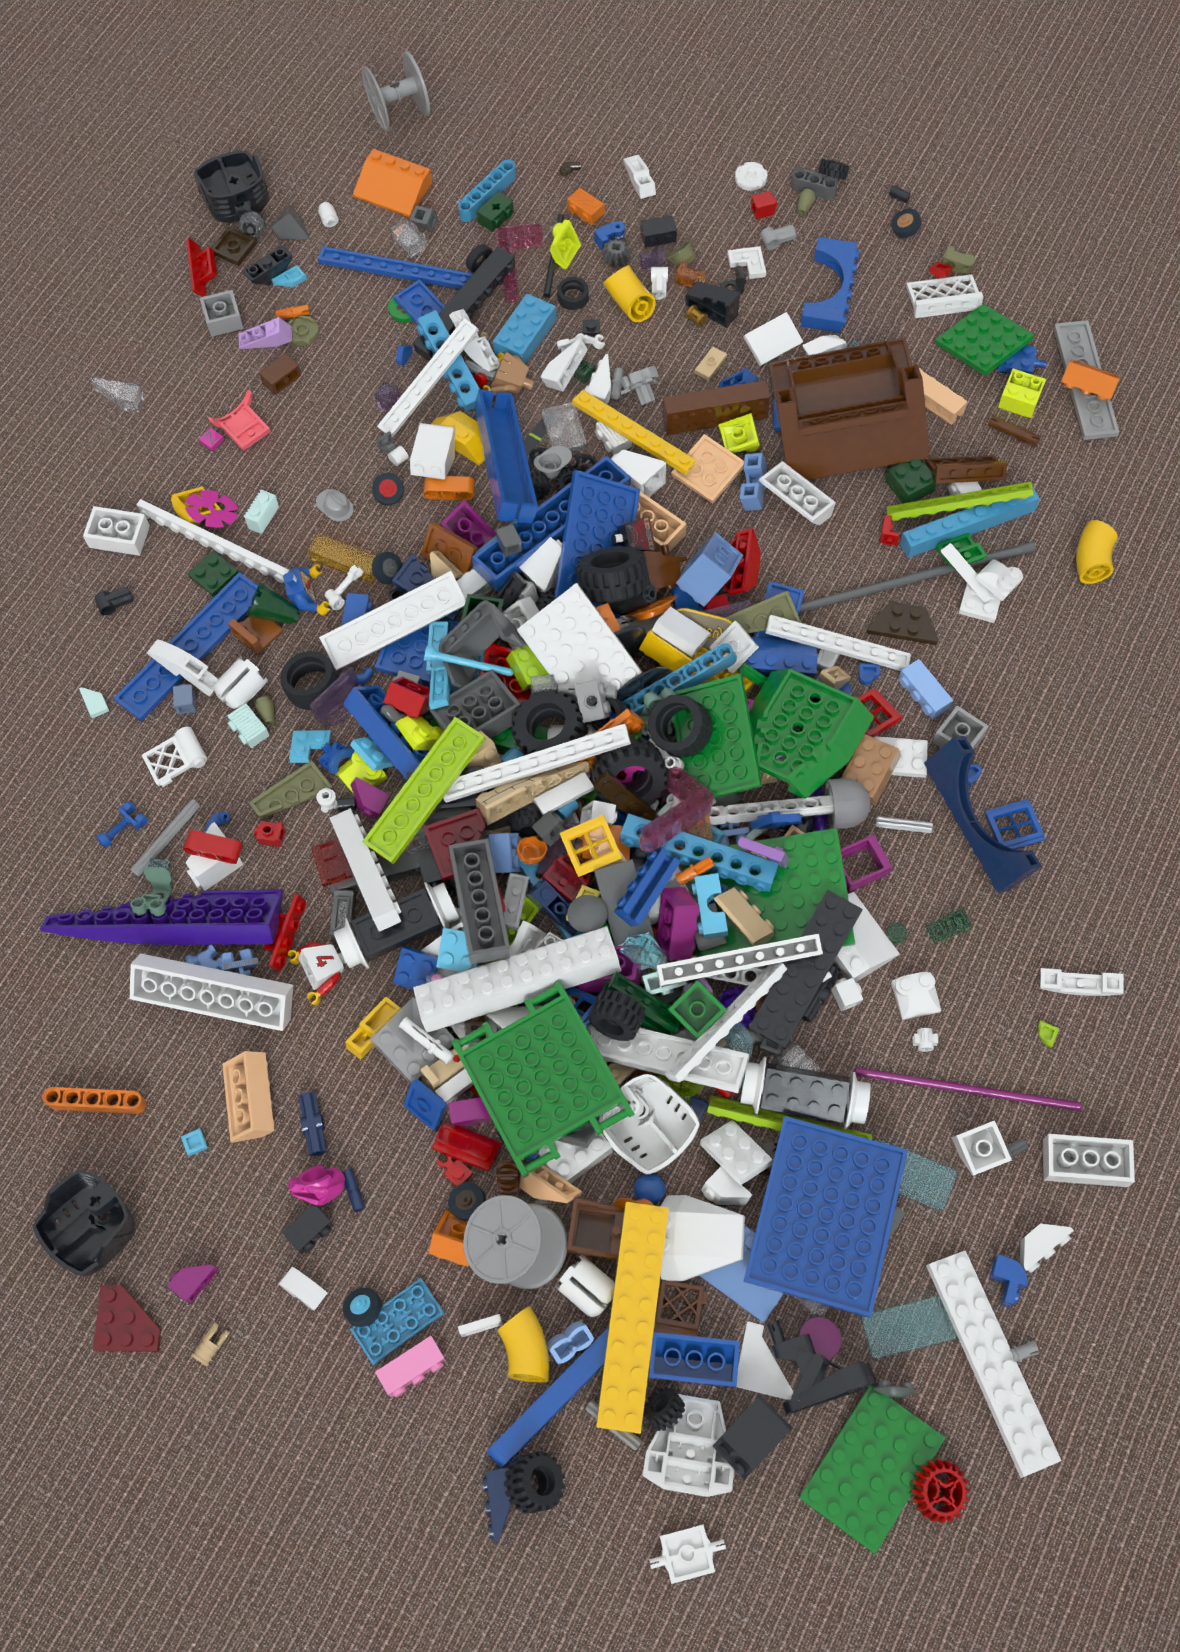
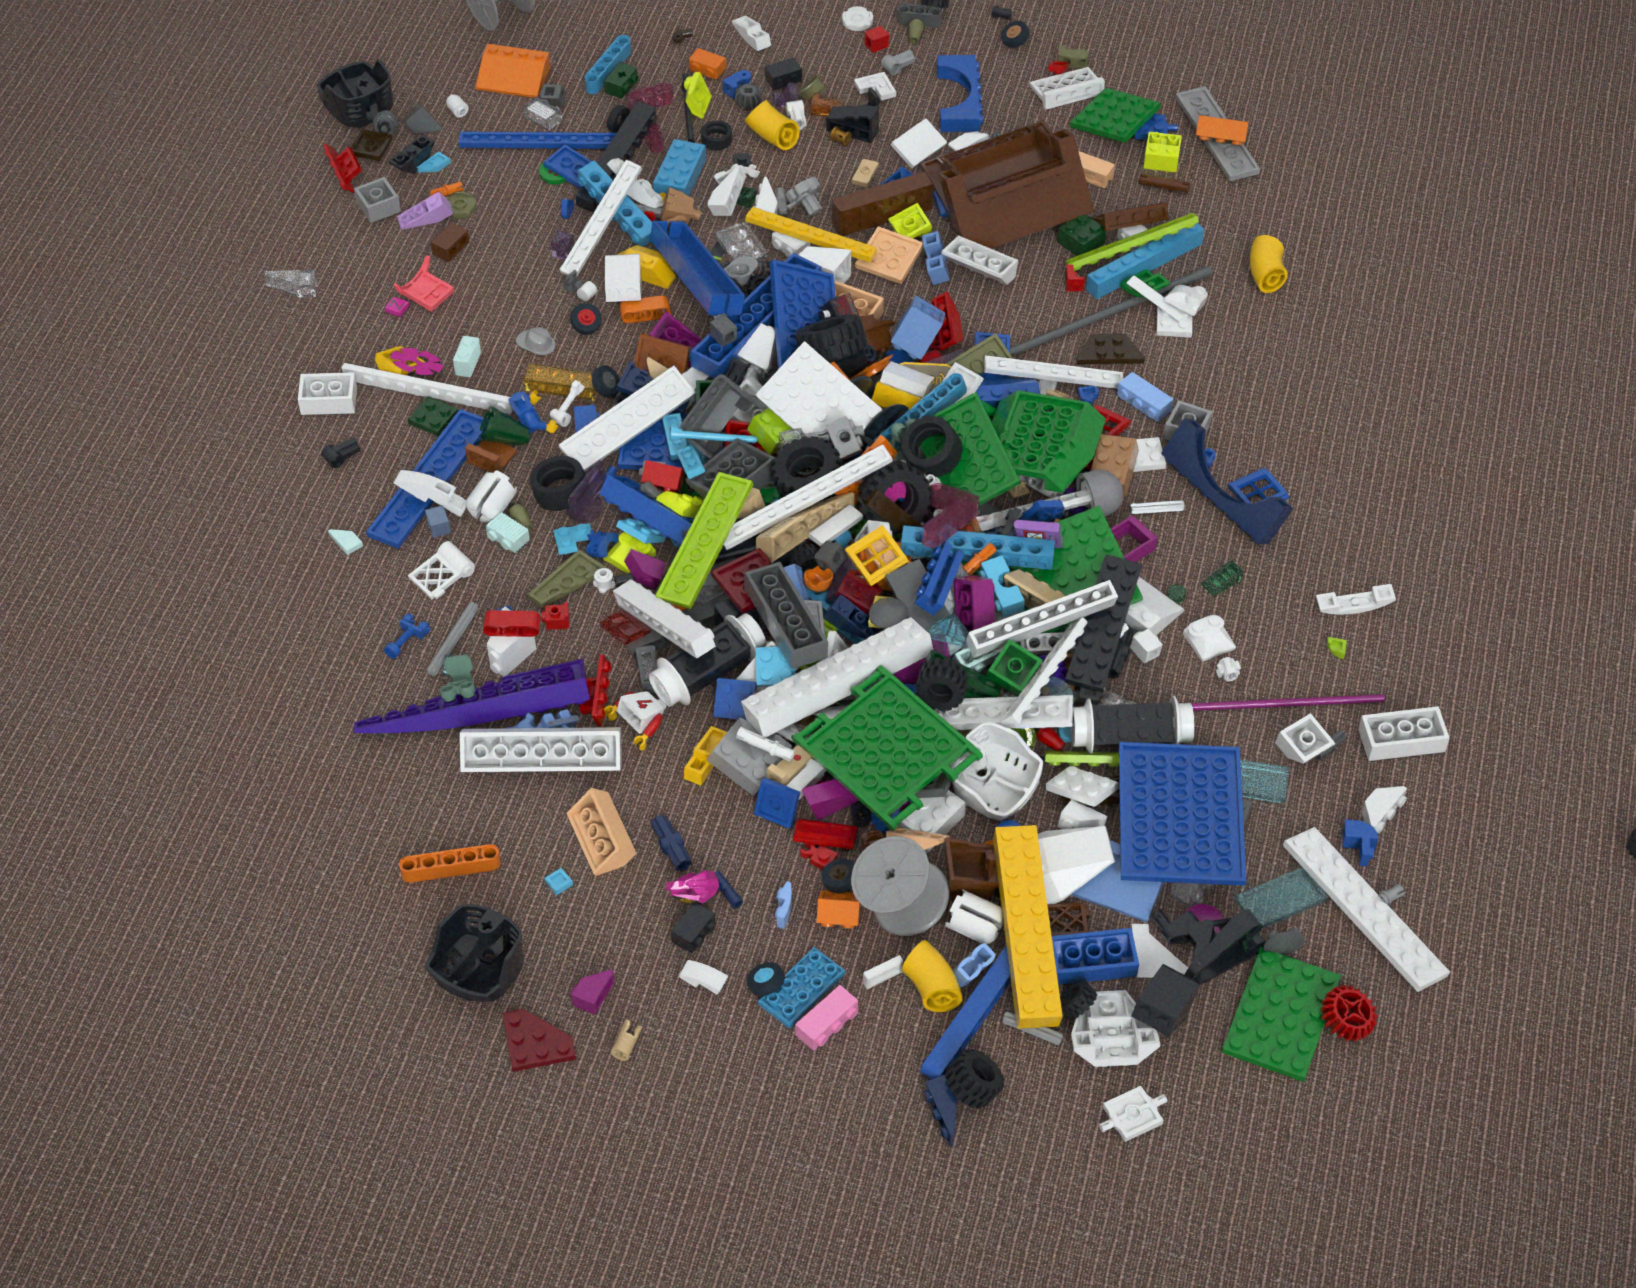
camera: 15 degrees left, 15 degrees down
(406, 1216) = (783, 911): none -> light blue slope
(742, 825) = (1011, 517): none -> black plate

